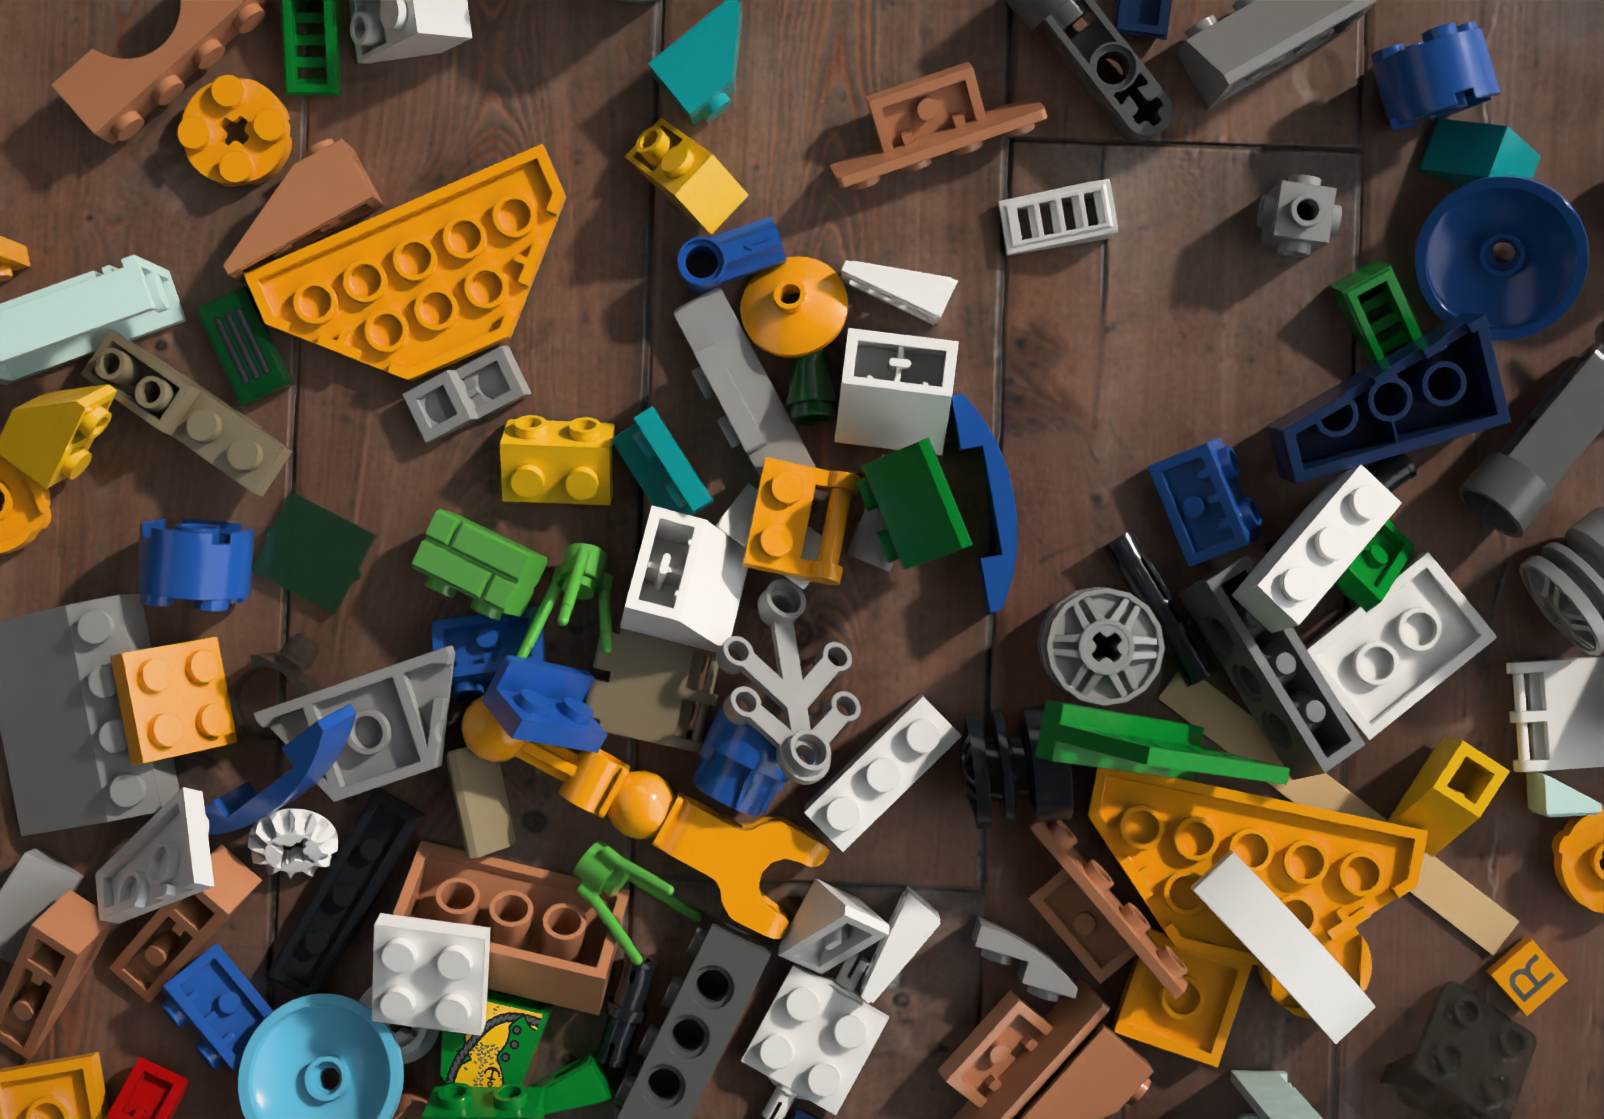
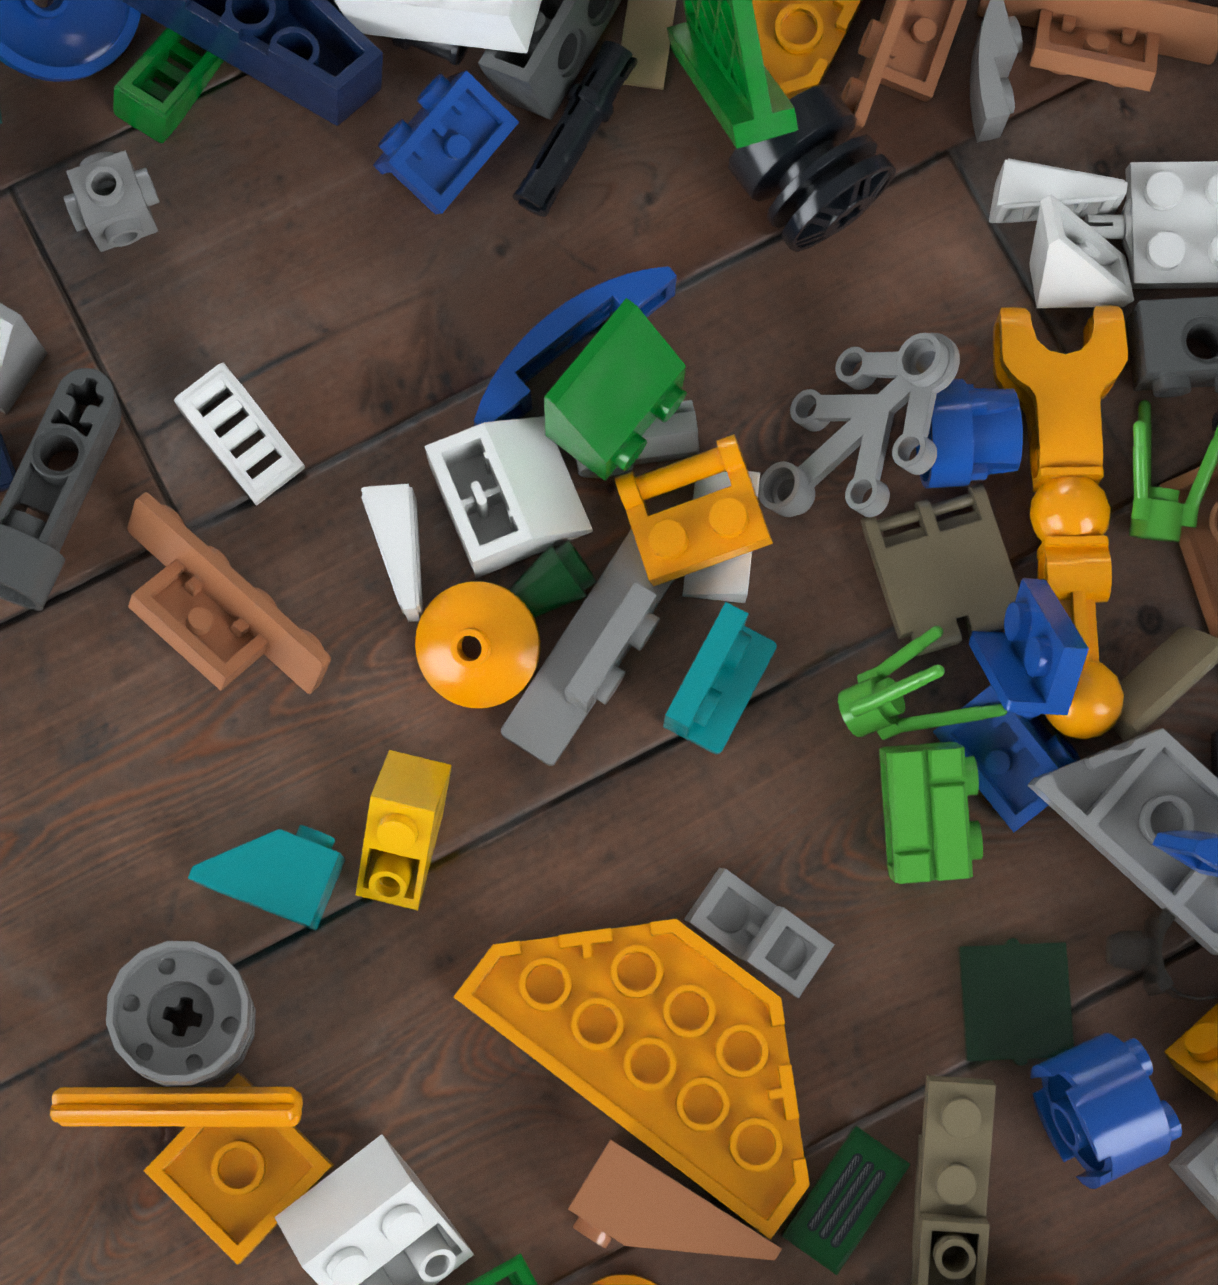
camera: 120 degrees left, 10 degrees down
(557, 461) = (772, 797): yellow bracket -> none
(685, 581) = (823, 593): white slope -> none
(736, 253) = (458, 734): blue piece -> none
(881, 772) = (892, 296): white brick -> none
(1068, 646) = (652, 189): light grey wheel -> none

